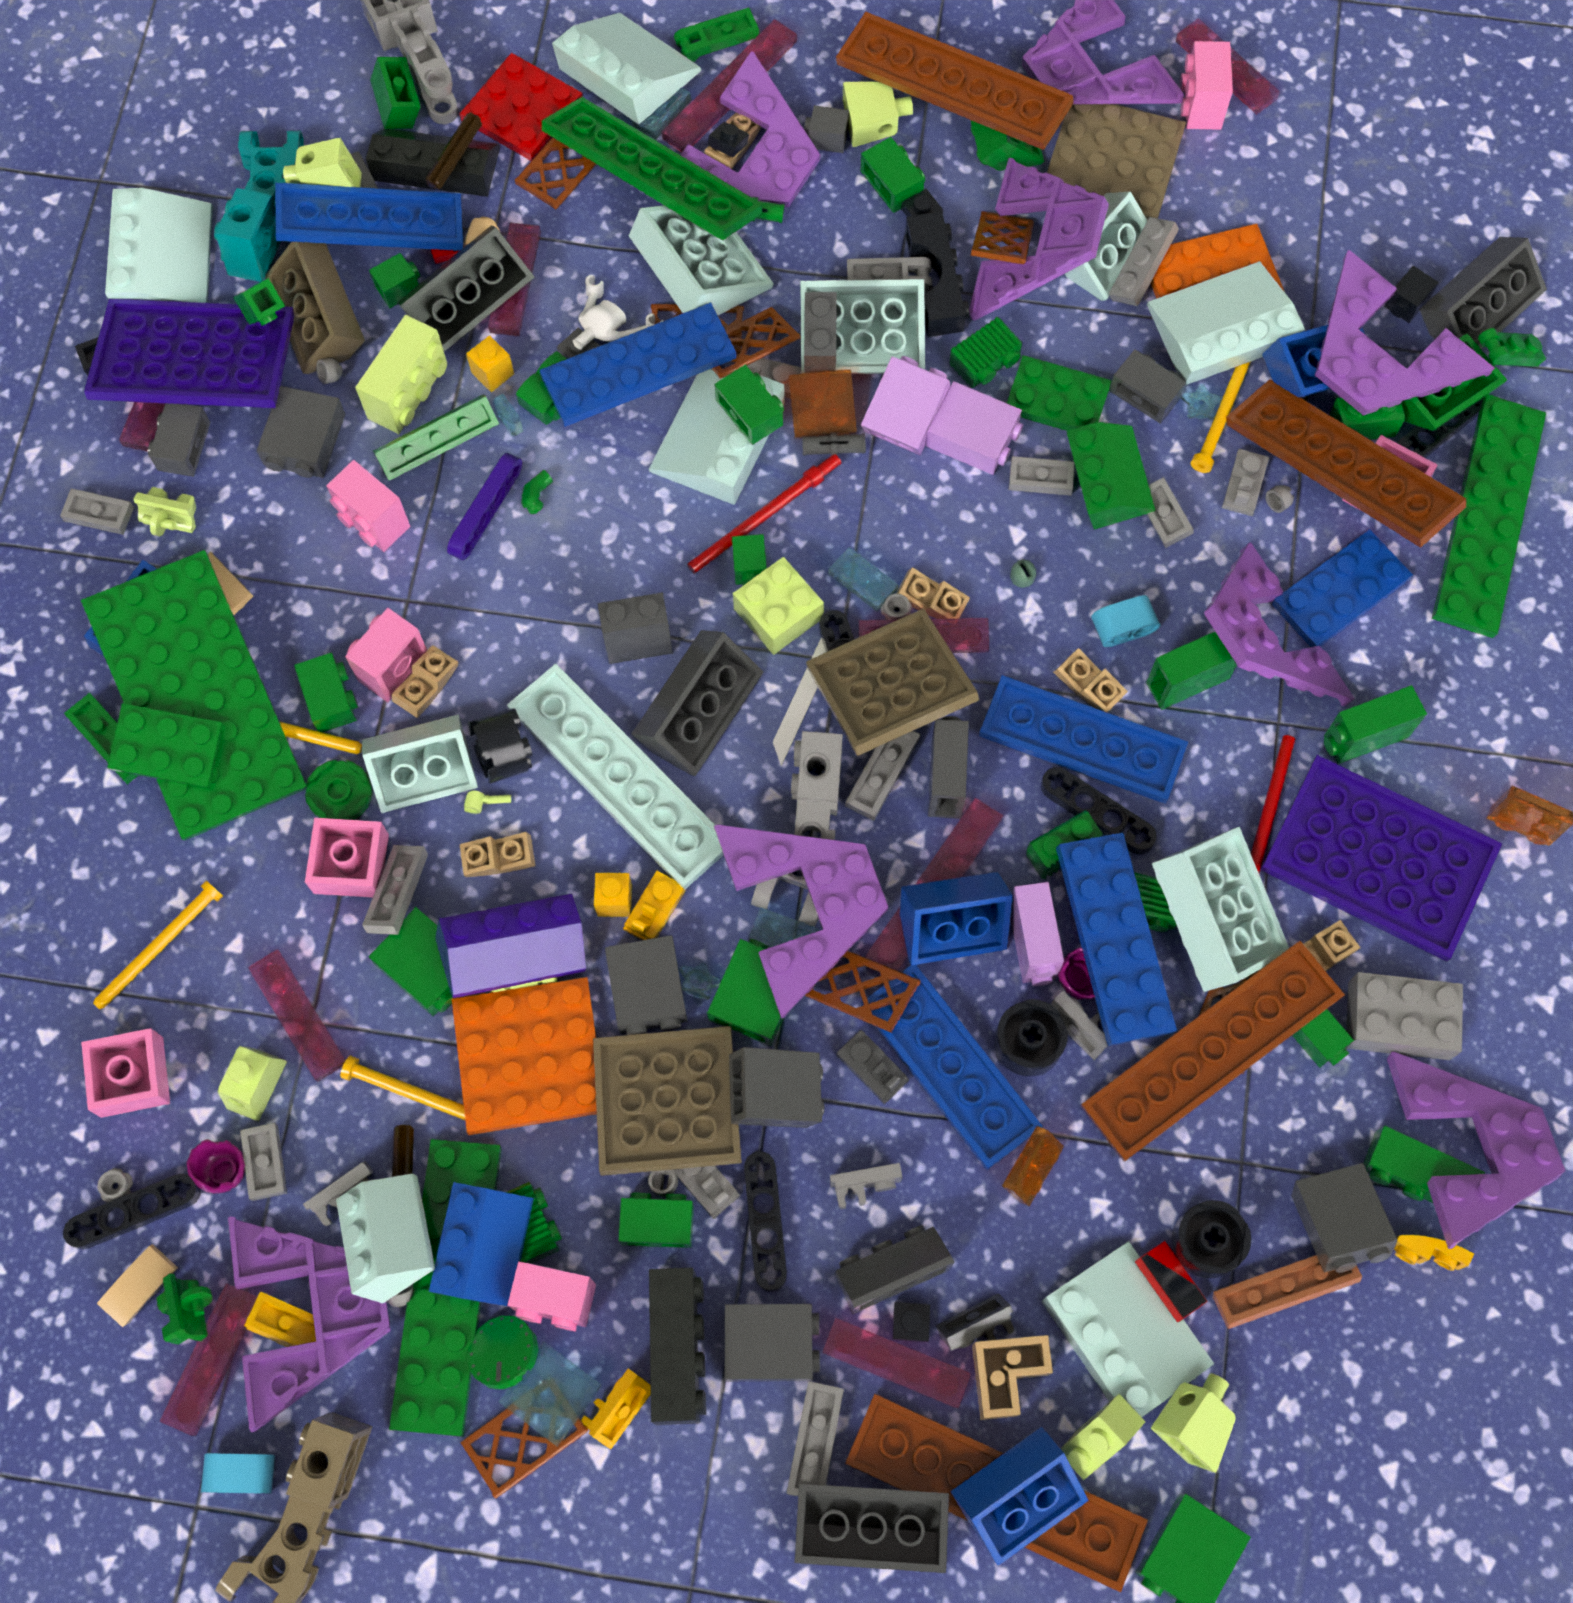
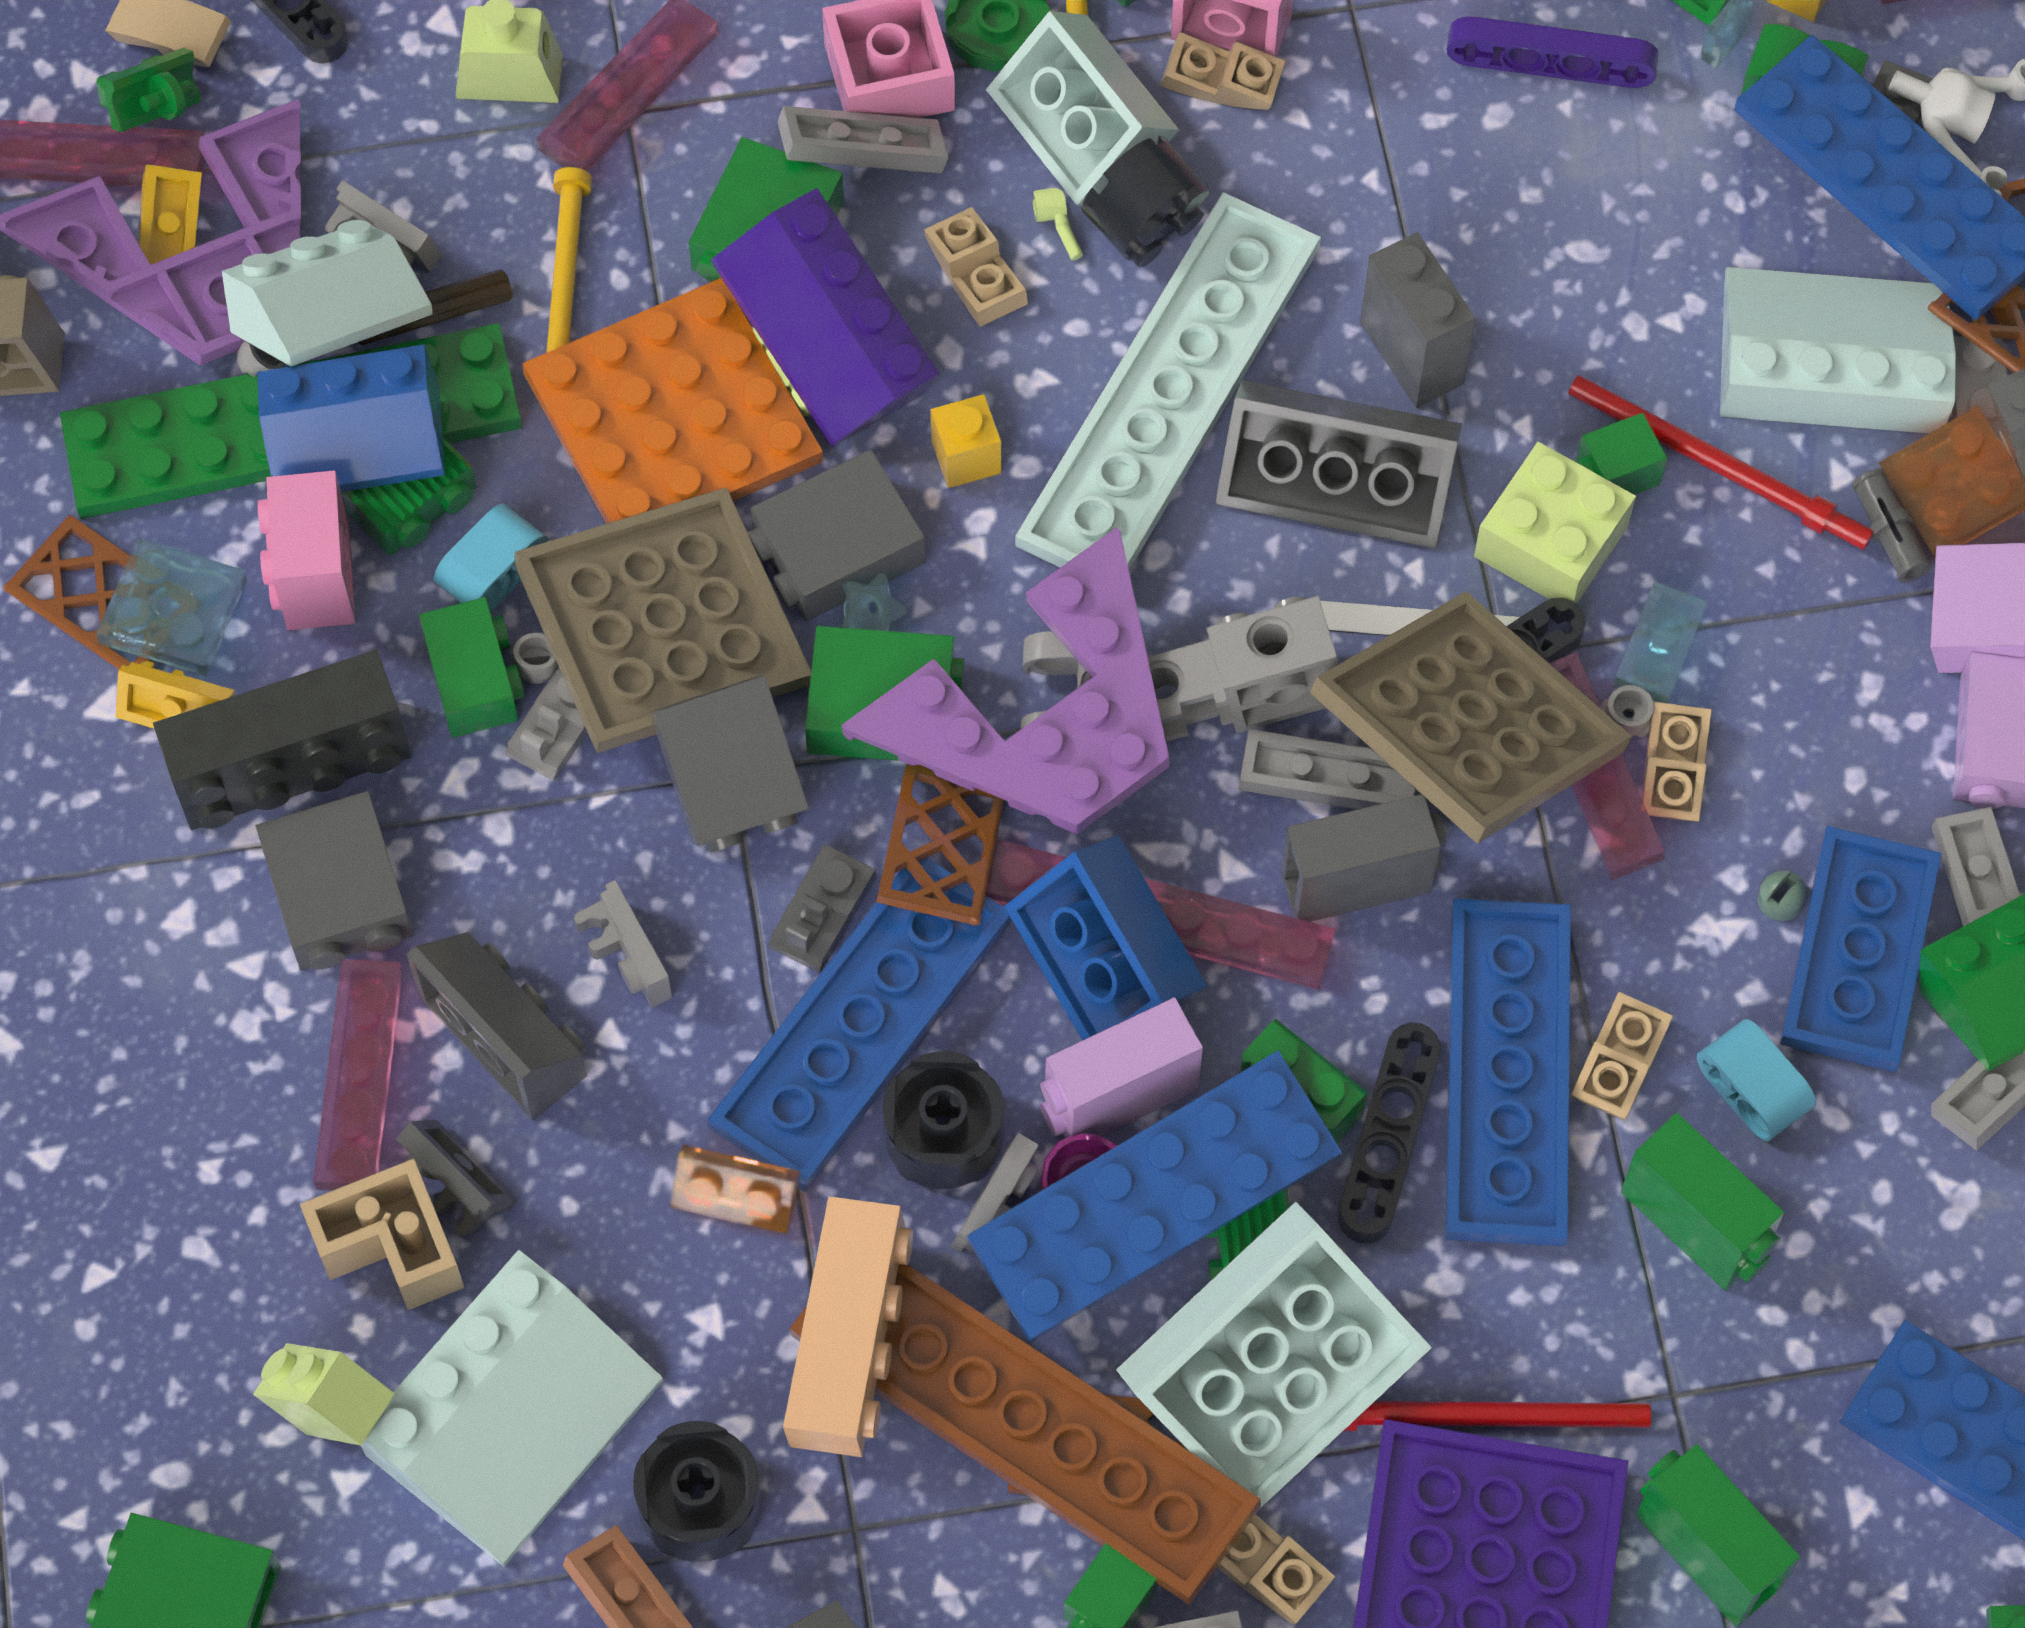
camera: 70 degrees right, 5 degrees down
(216, 1166) = (366, 57): magenta hair -> none
(263, 1162) = (395, 119): light grey plate -> none
(502, 1352) = (209, 519): green tile -> none
(532, 490) = (1612, 111): green arm -> none
(589, 1189) = (484, 558): none -> medium azure beam
(654, 907) = (971, 513): yellow plate -> none
(749, 404) = (1879, 348): green brick -> none
(763, 1221) = (527, 833): black beam -> none
(777, 929) = (995, 690): clear light blue plate -> none
(815, 1436) = (206, 992): light grey plate -> none
(872, 1528) = (90, 1100): dark grey slope -> none
(911, 1322) = (431, 1083): black plate -> none
(930, 1457) = (201, 1281): dark orange plate -> none
(1020, 1495) = (197, 1297): blue slope -> none
(1067, 546) = (1860, 949): none -> blue plate
(1143, 1127) = (846, 1327): none -> light nougat brick
(1171, 1281) = (607, 1460): tile -> none
(1197, 1422) = (391, 1542): yellowish green torso -> none
(1253, 644) = (1779, 1260): medium lavender wing -> none

